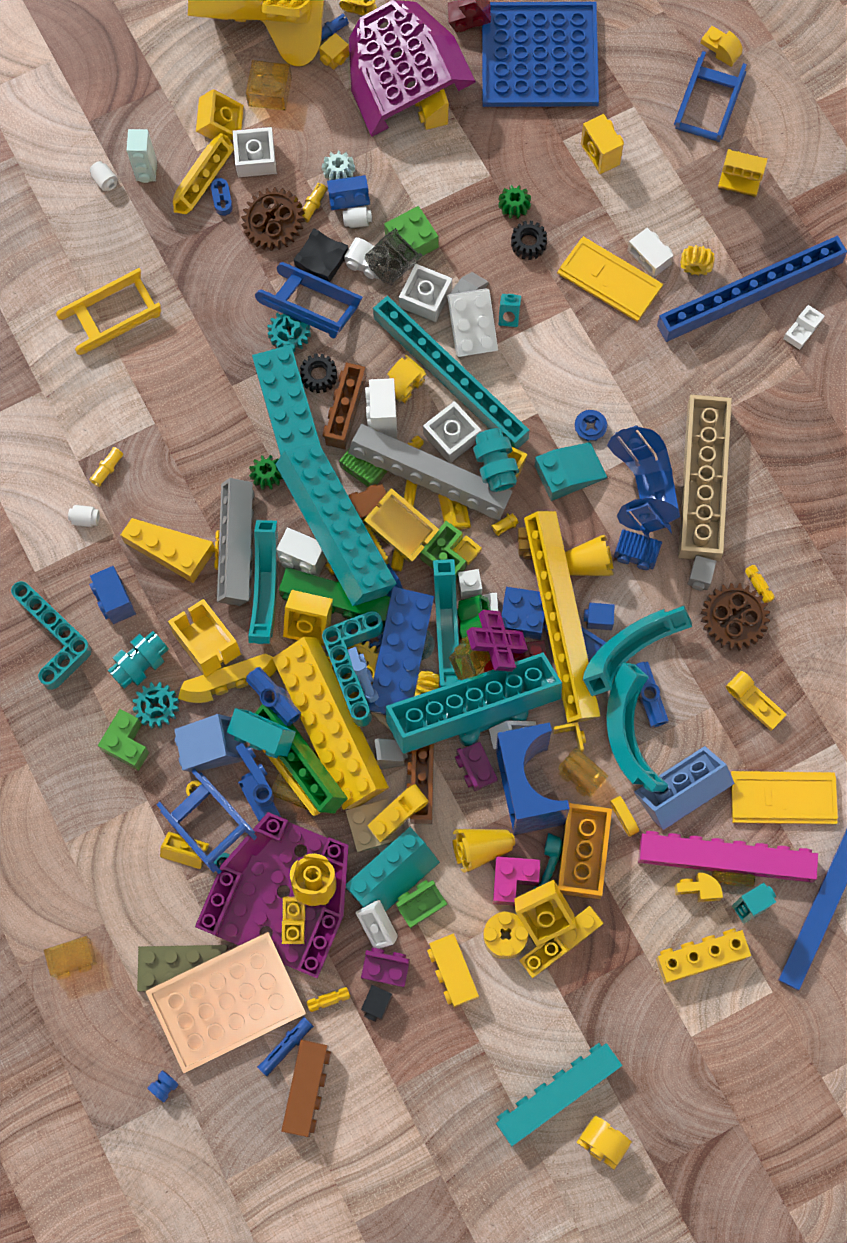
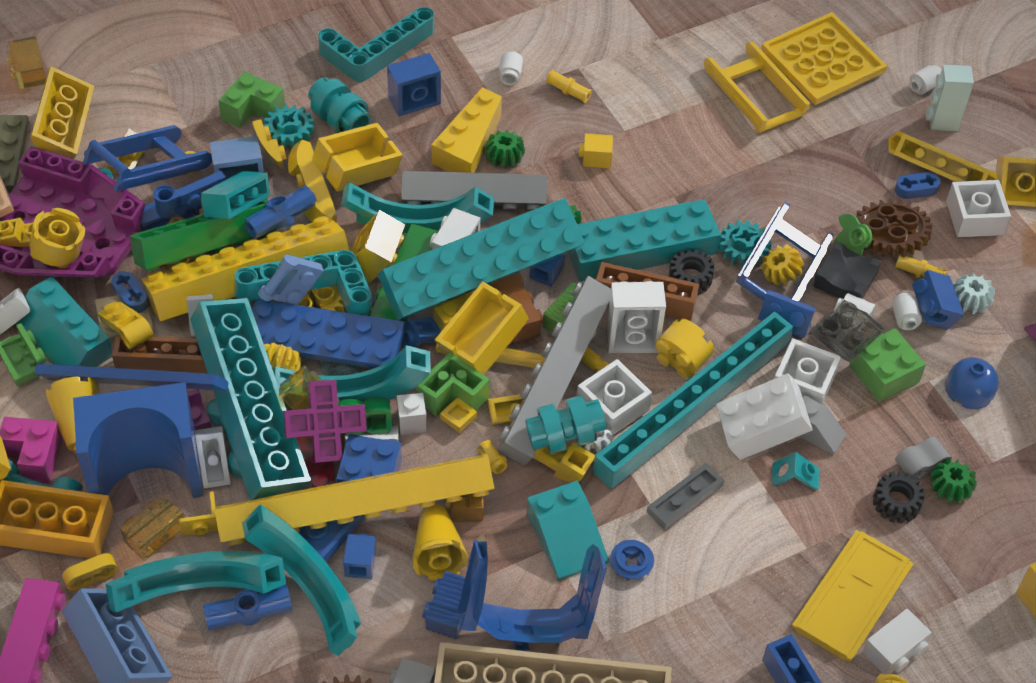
camera: 85 degrees right, 20 degrees down
(74, 255) = (823, 58): none -> yellow plate
(154, 903) = (61, 113): none -> yellow slope
(186, 443) = (596, 150): none -> yellow brick
(186, 715) = (271, 148): none -> yellow slope
(192, 518) = (504, 148): none -> green gear
(285, 247) = (854, 235): none -> bright green plate
(322, 301) = (782, 265): none -> yellow gear
(352, 814) = (134, 289): none -> blue beam
(369, 298) = (791, 310): none -> blue bracket
(423, 179) = (972, 383): none -> blue cylinder
(459, 798) = (133, 376): none -> blue tile
(495, 220) = (922, 458): none -> light grey axle
(534, 386) = (685, 496): none -> dark grey plate

